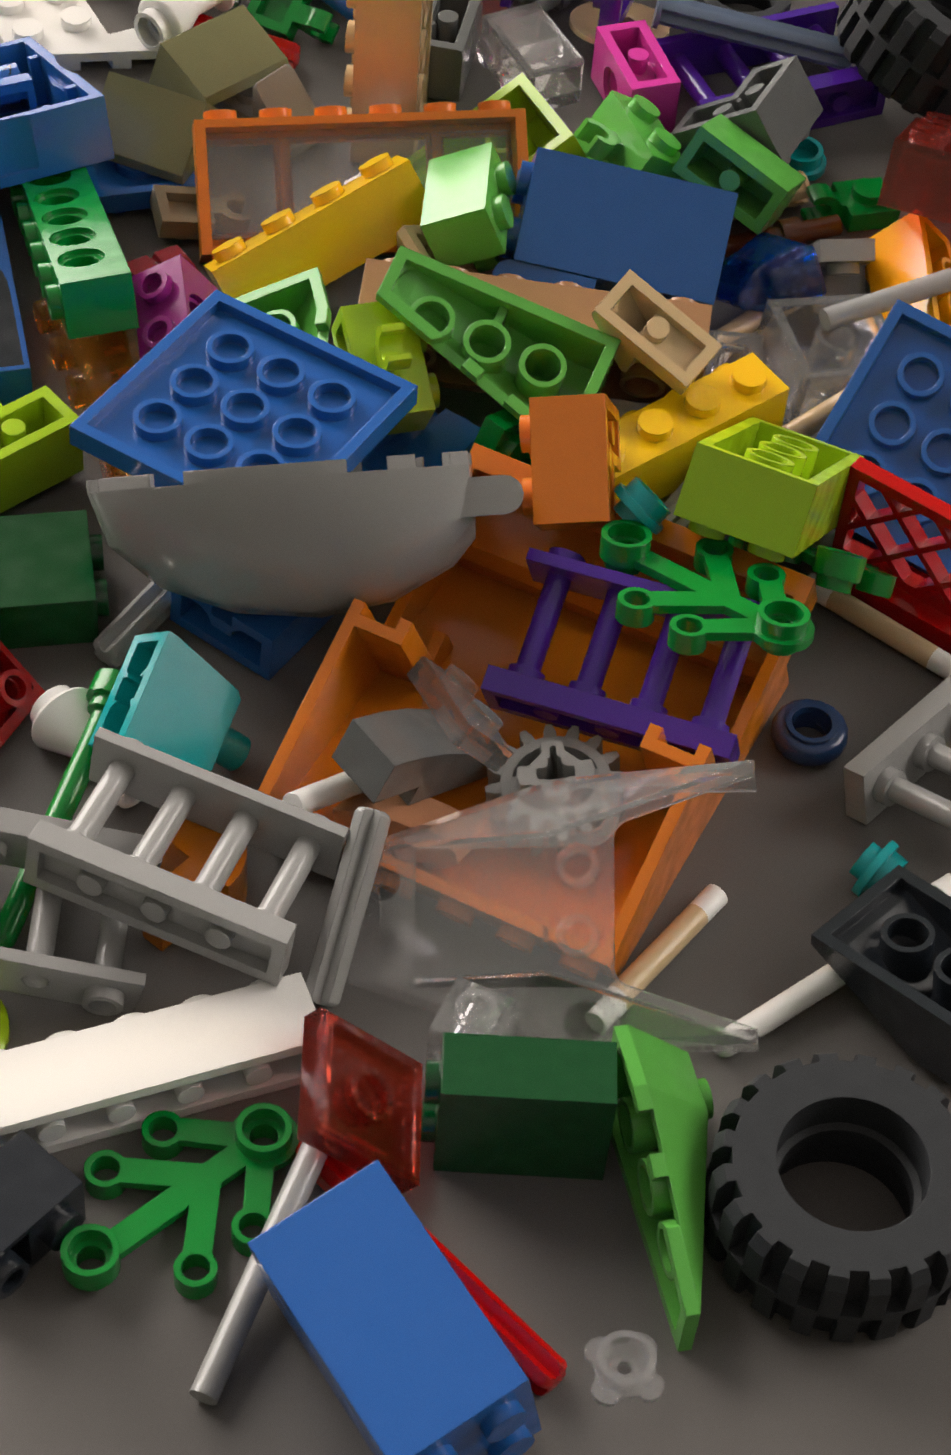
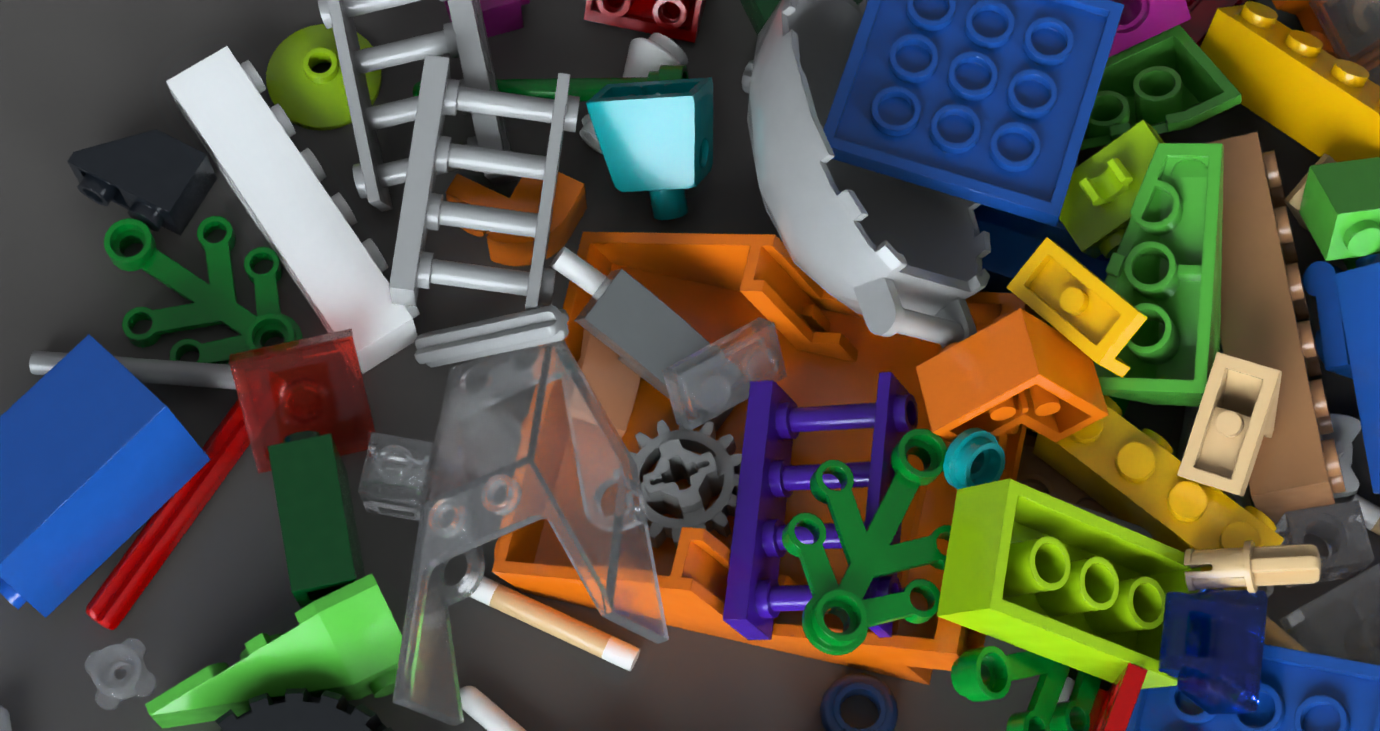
camera: 80 degrees right, 20 degrees up
(501, 385) = (1078, 304): none -> yellow panel
(783, 364) = (1253, 566): none -> tan axle
(843, 416) = (1215, 647): none -> clear blue piece

